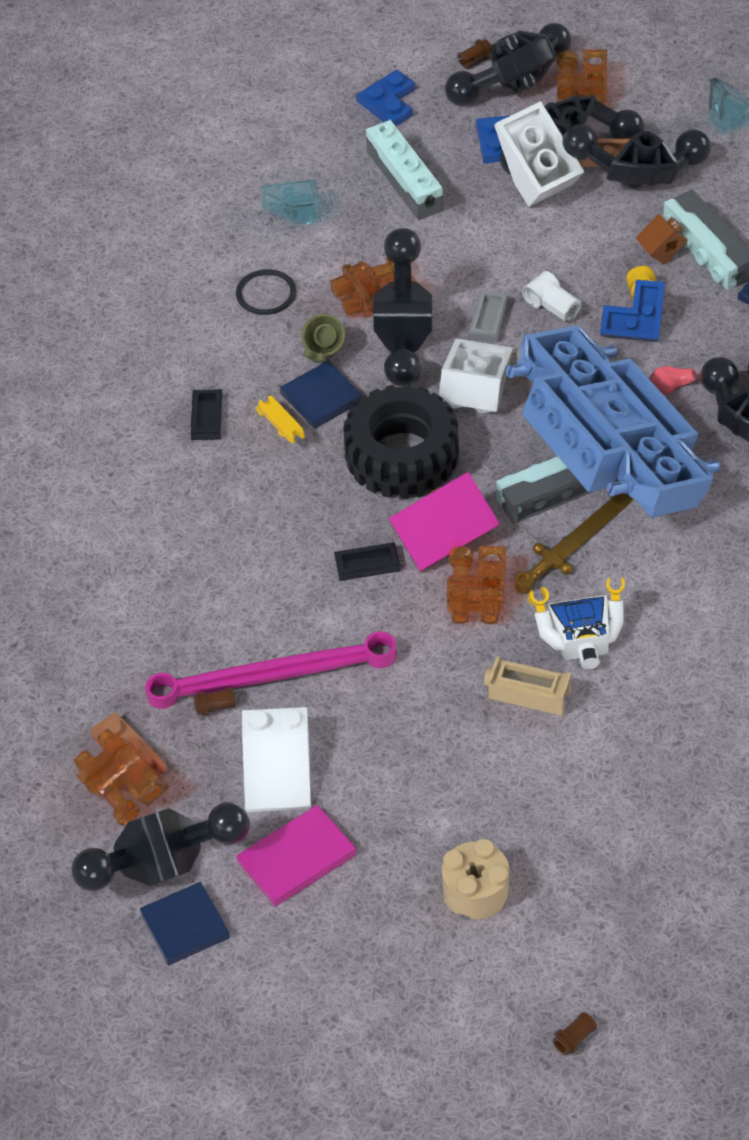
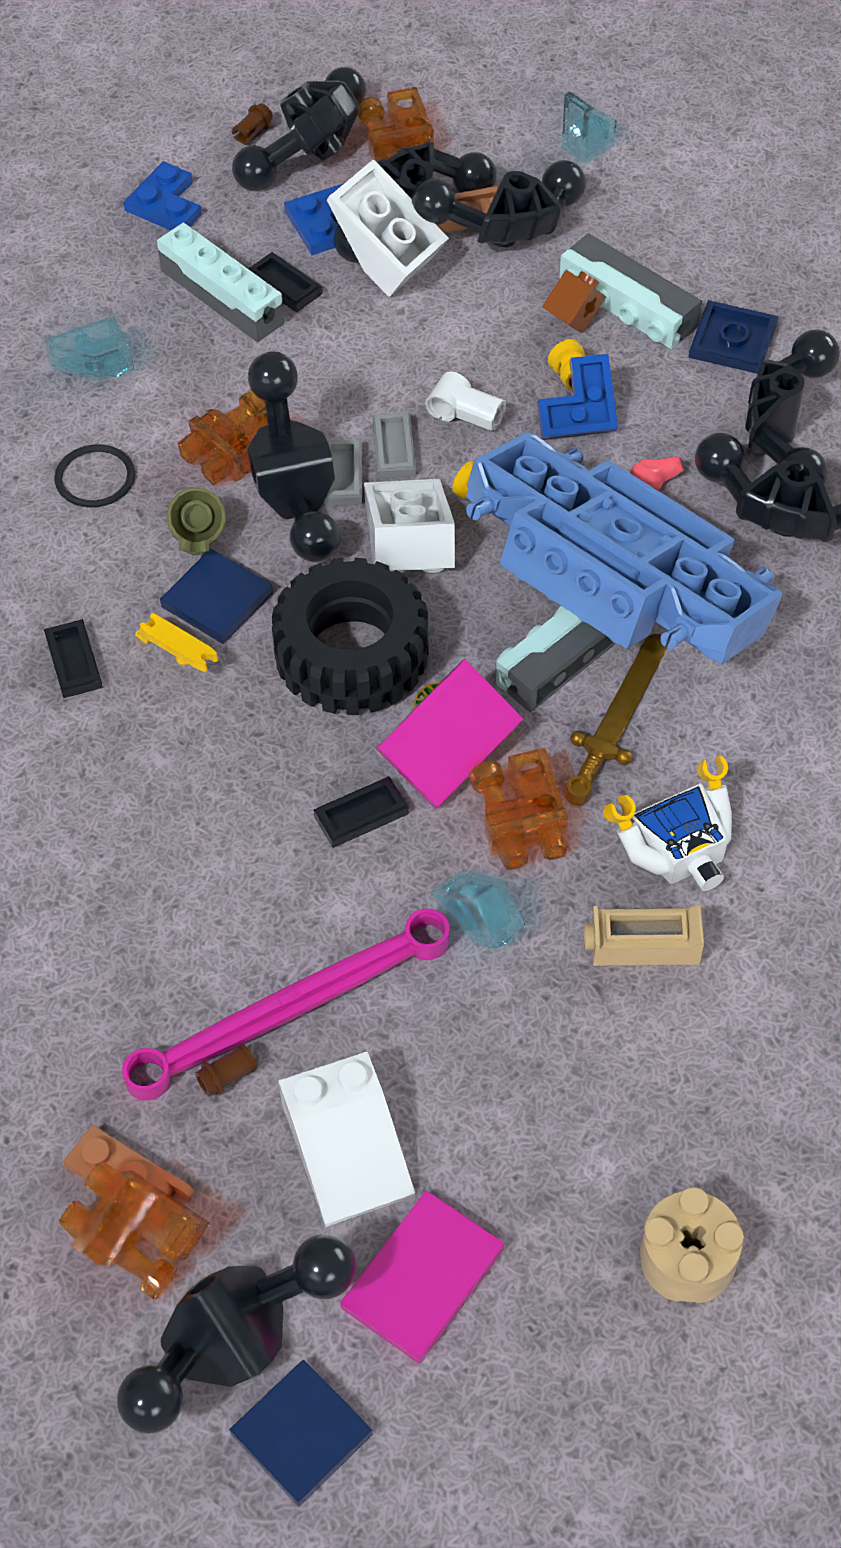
camera: 20 degrees left, 5 degrees up
(422, 641) = (480, 907): none -> clear light blue slope
(445, 327) = (347, 471): none -> light grey tile
(454, 179) = (294, 286): none -> black tile

